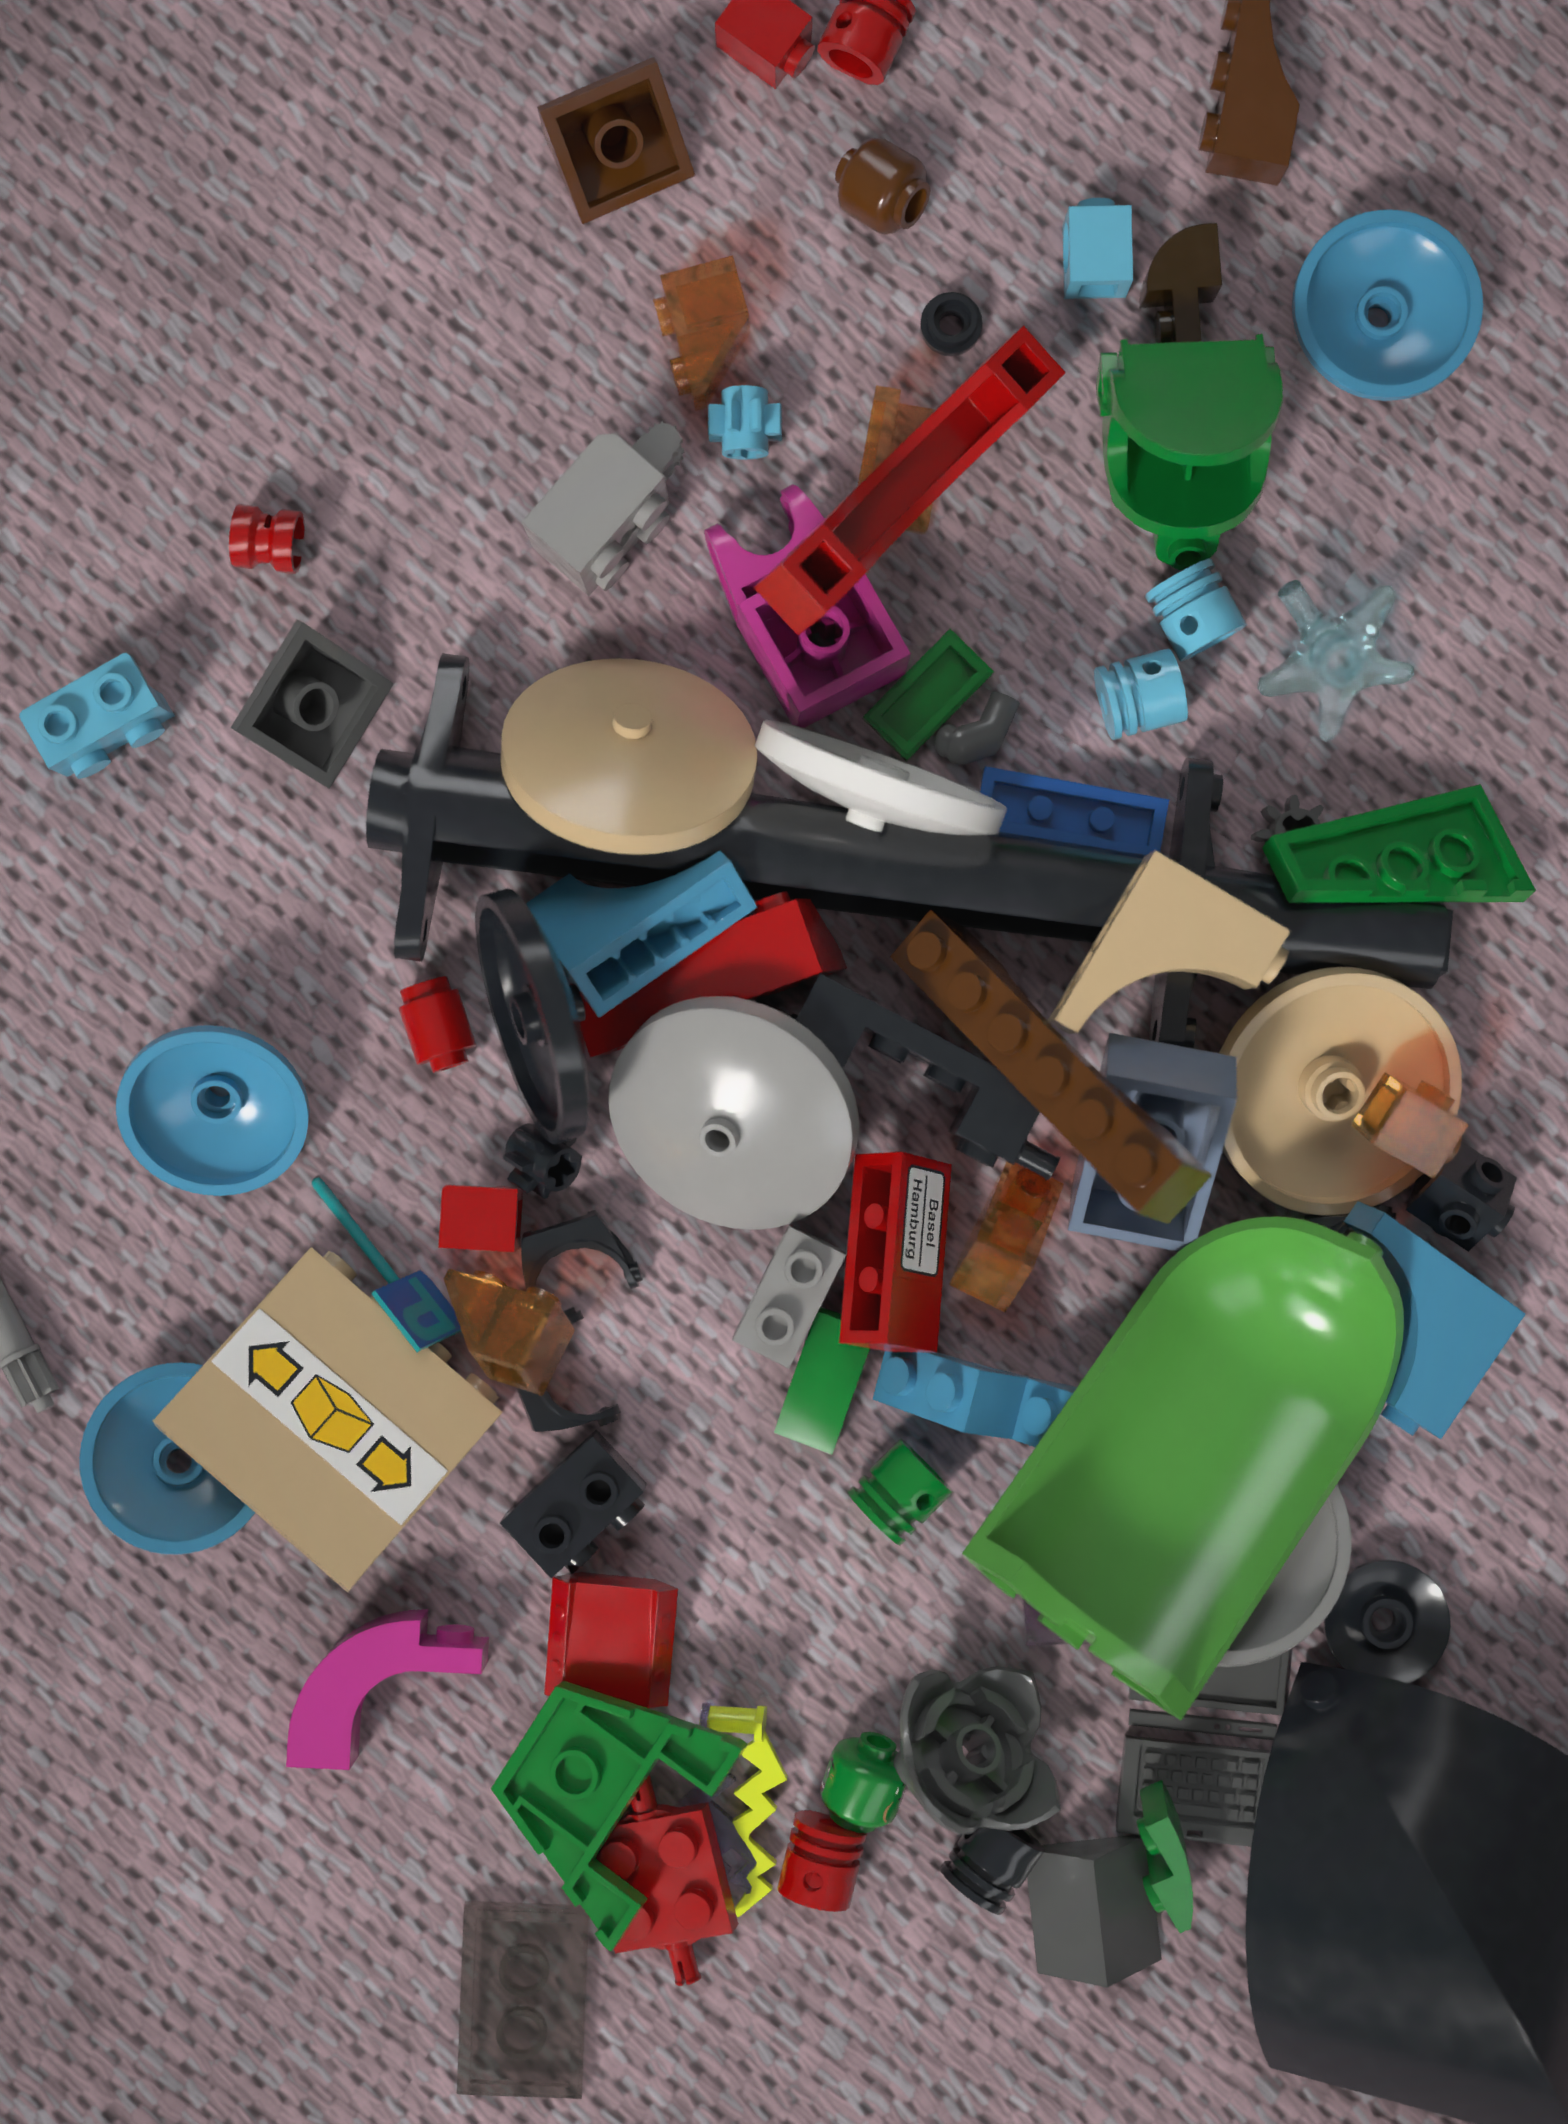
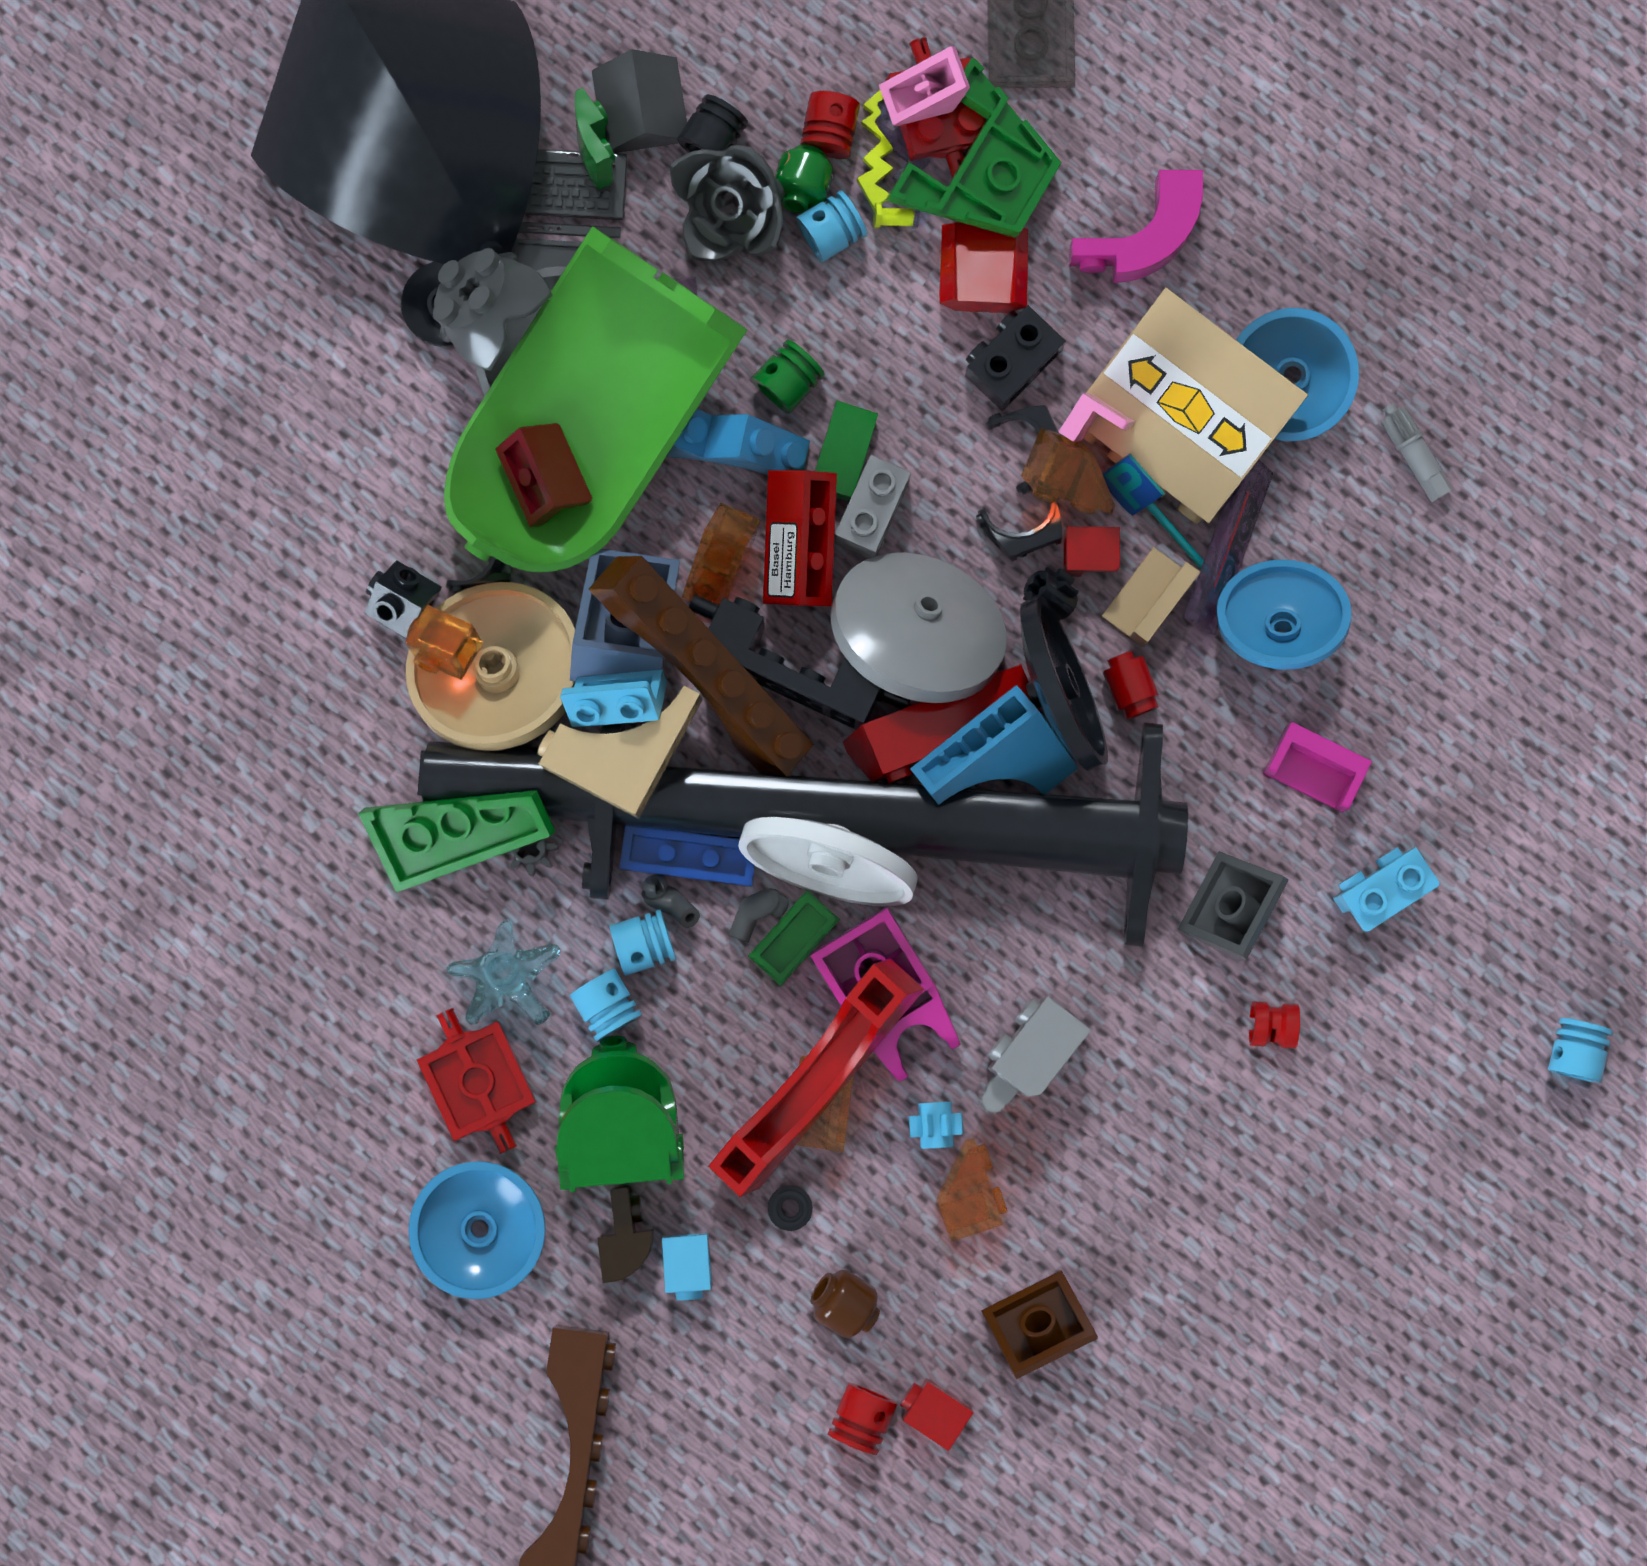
camera: 175 degrees right, 5 degrees down
(181, 895) = (1317, 767): none -> dark pink panel
(288, 1212) = (1228, 547): none -> clear purple tile
(401, 1150) = (1149, 596): none -> tan panel
(459, 1417) = (1086, 412): none -> bright pink panel
(628, 756) = (1006, 873): tan dish -> none
(681, 1906) = (926, 88): none -> bright pink slope
(827, 1710) = (831, 226): none -> medium azure piece
(1098, 753) = (669, 900): none -> dark grey arm
(1175, 1020) = (615, 698): none -> medium azure bracket
(1258, 1365) = (542, 472): none -> dark red panel
(1343, 1624) = (480, 297): none -> dark grey brick
(1377, 516) = (476, 1081): none -> red plate
(1449, 1326) = (411, 507): dark azure arch -> none

